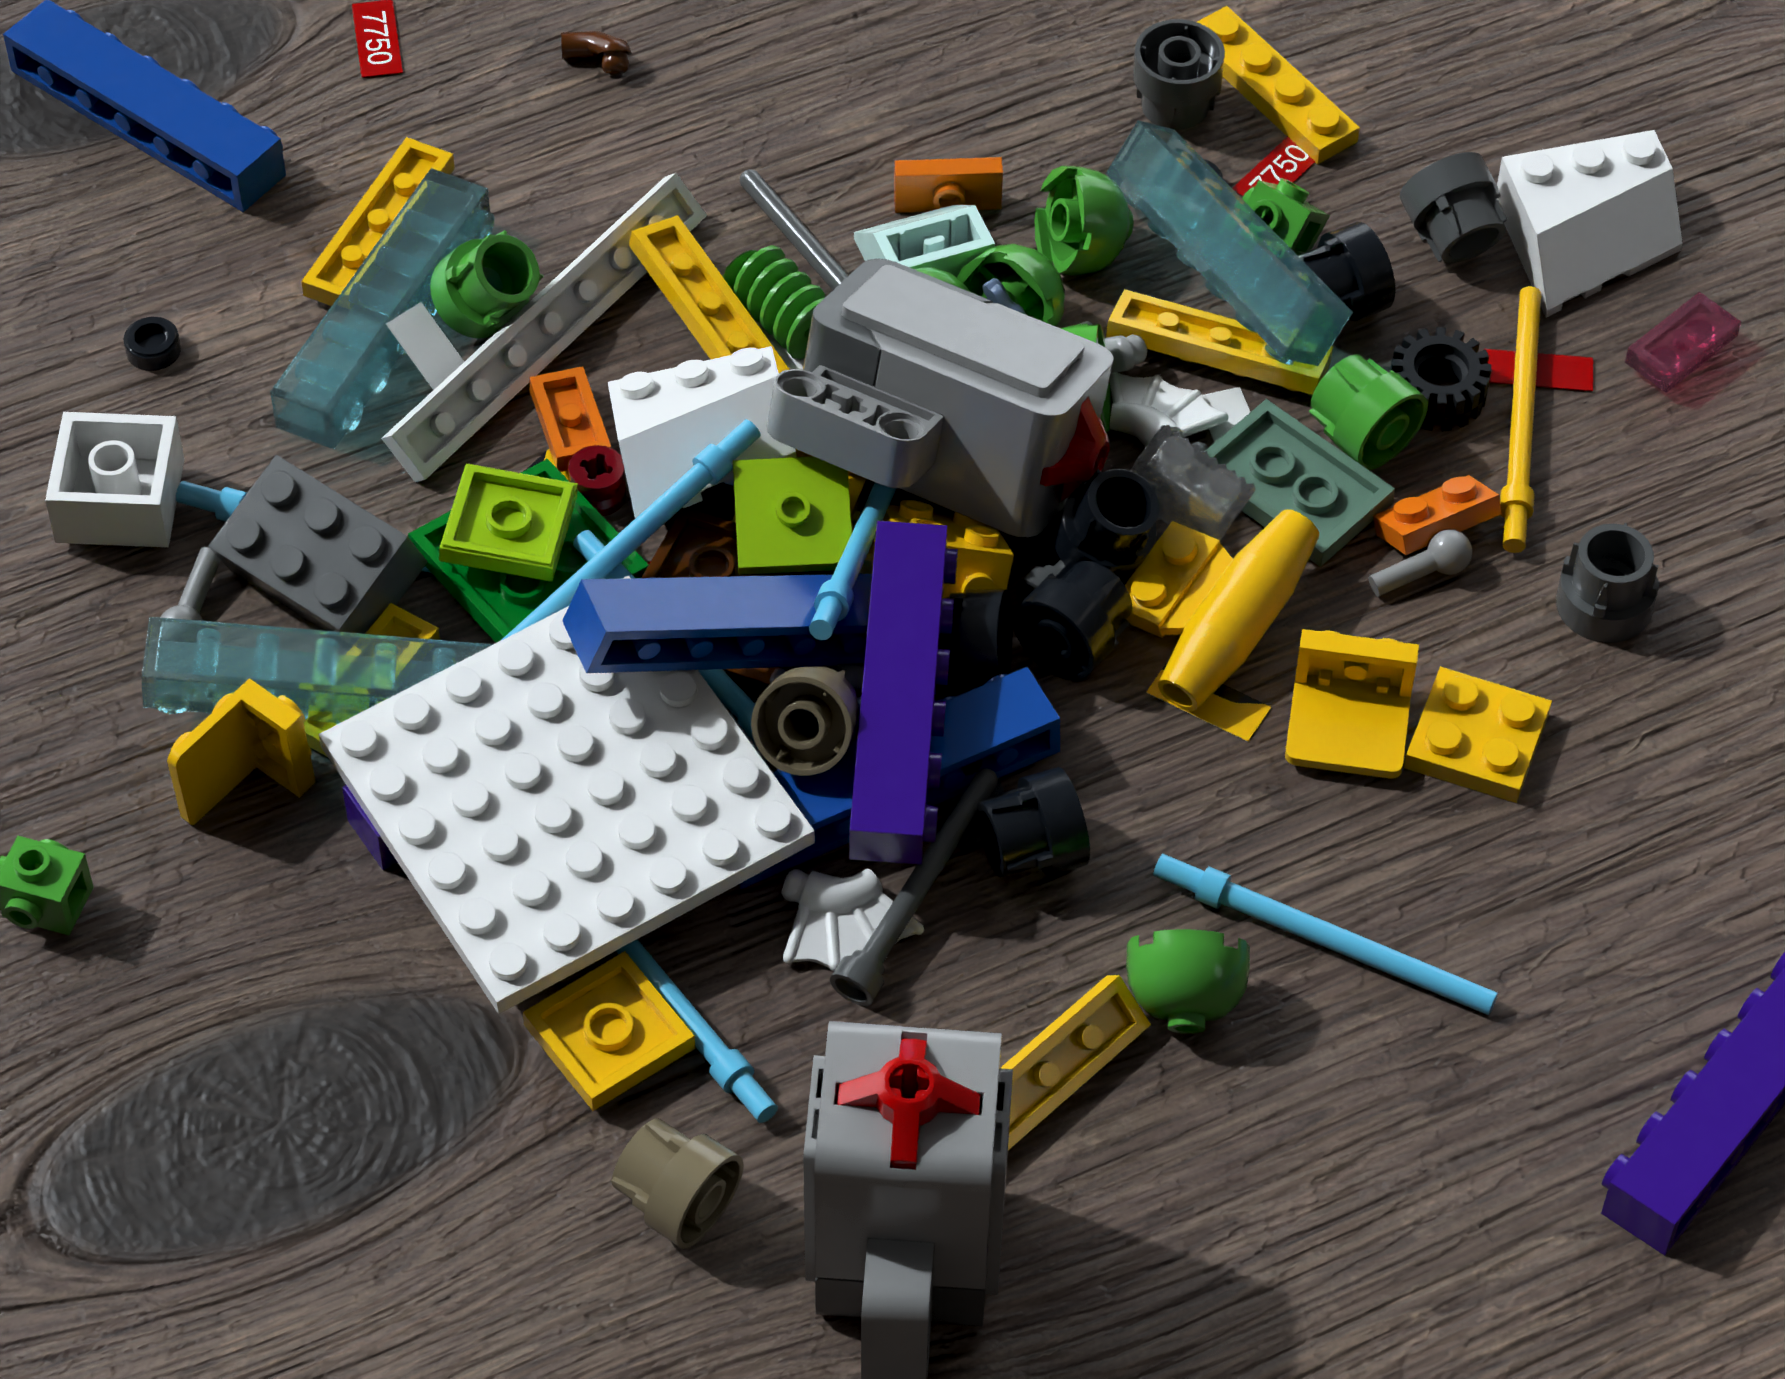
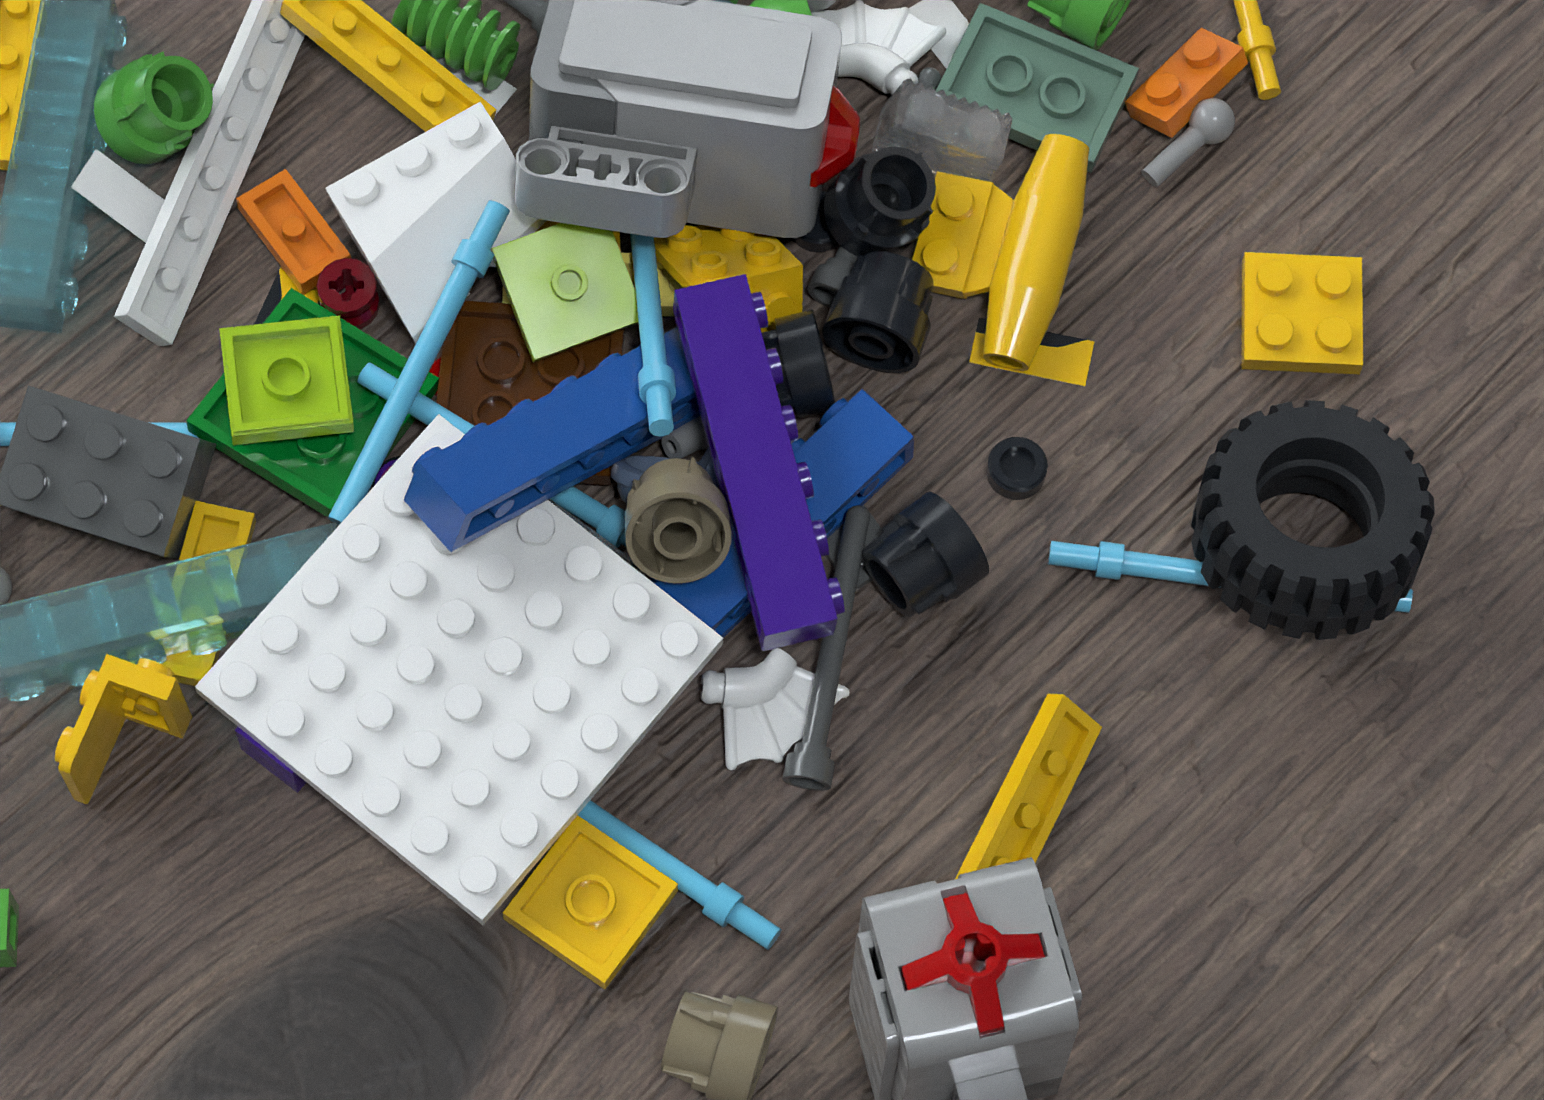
camera: 20 degrees left, 15 degrees up
(1155, 788) = (1016, 468): none -> black tile
(1187, 976) = (1126, 676): bright green cylinder -> none
(1351, 703) = (1176, 324): yellow bracket -> none
(1402, 945) = (1324, 456): none -> black tyre
(1608, 584) = (1371, 140): dark grey piece -> none

